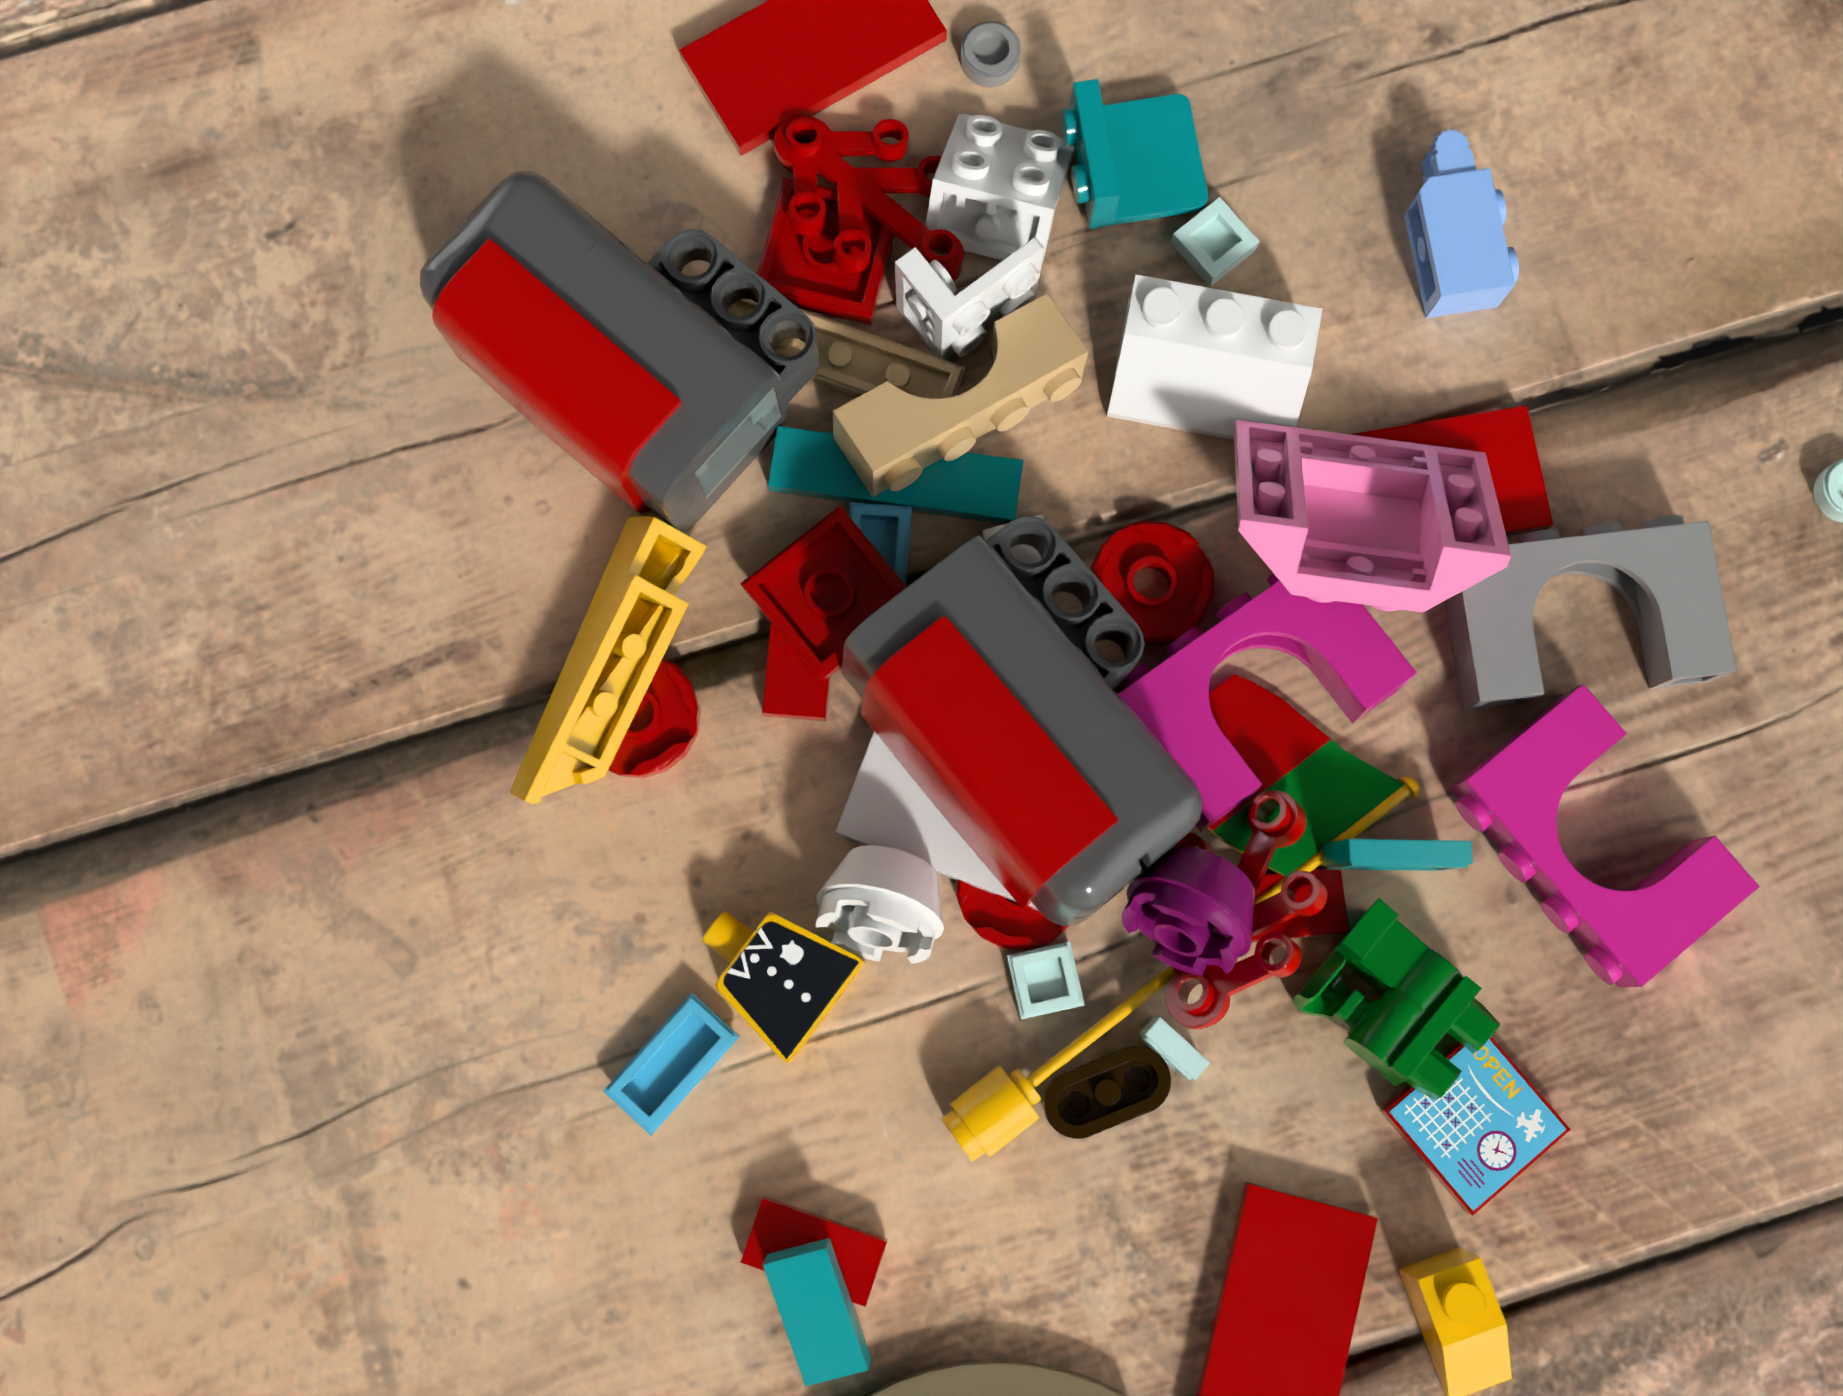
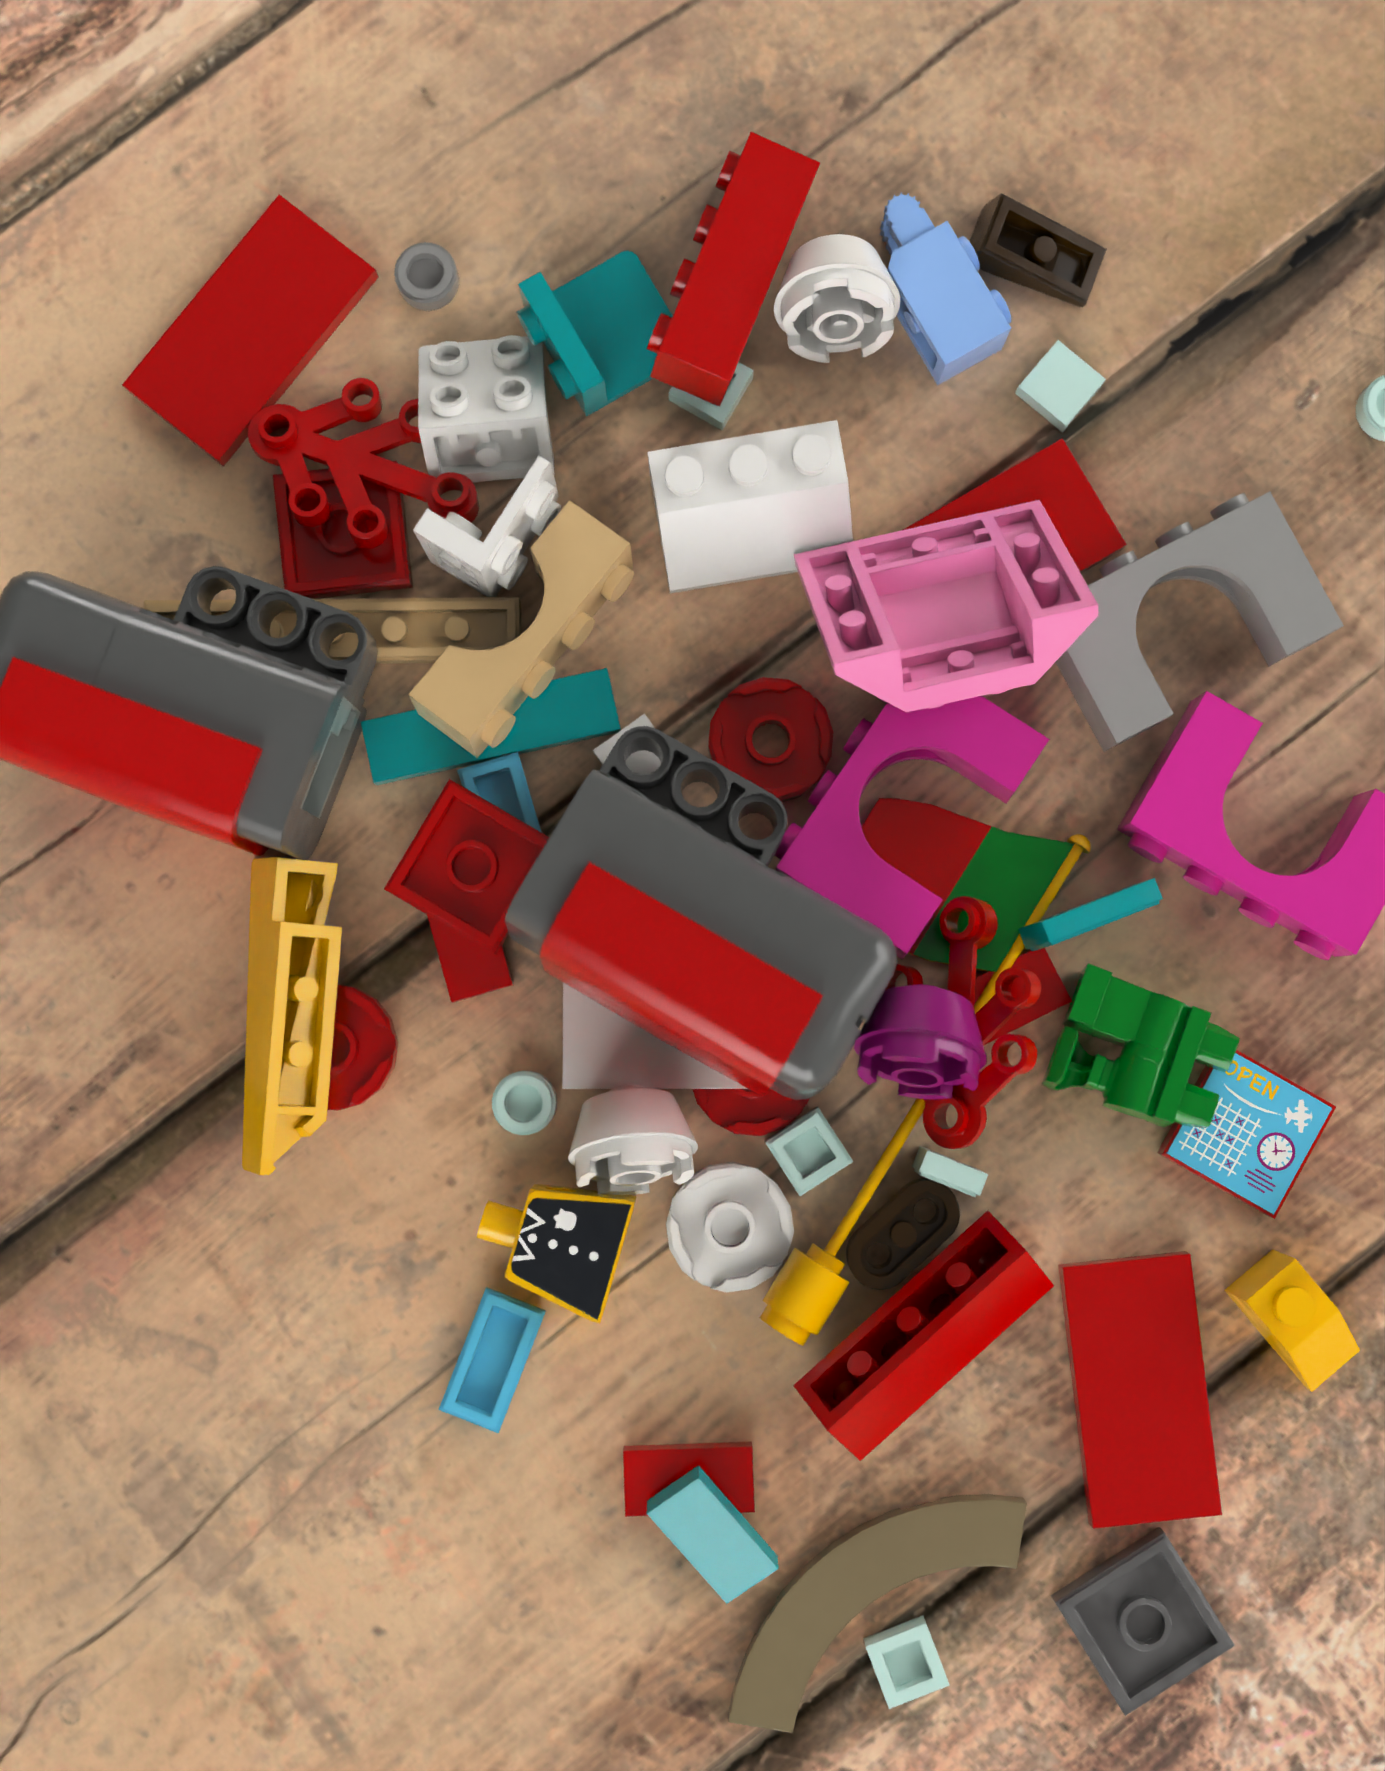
camera: 20 degrees left, 5 degrees up
(794, 833) = (524, 1102): none -> light aqua tile
(943, 1024) = (729, 1227): none -> white tile
(1092, 1195) = (923, 1336): none -> red brick
(1275, 142) = (734, 268): none -> red brick
(1361, 202) = (836, 298): none -> white cone
(1541, 358) = (1060, 386): none -> light aqua tile
(1561, 229) = (1035, 251): none -> dark brown slope

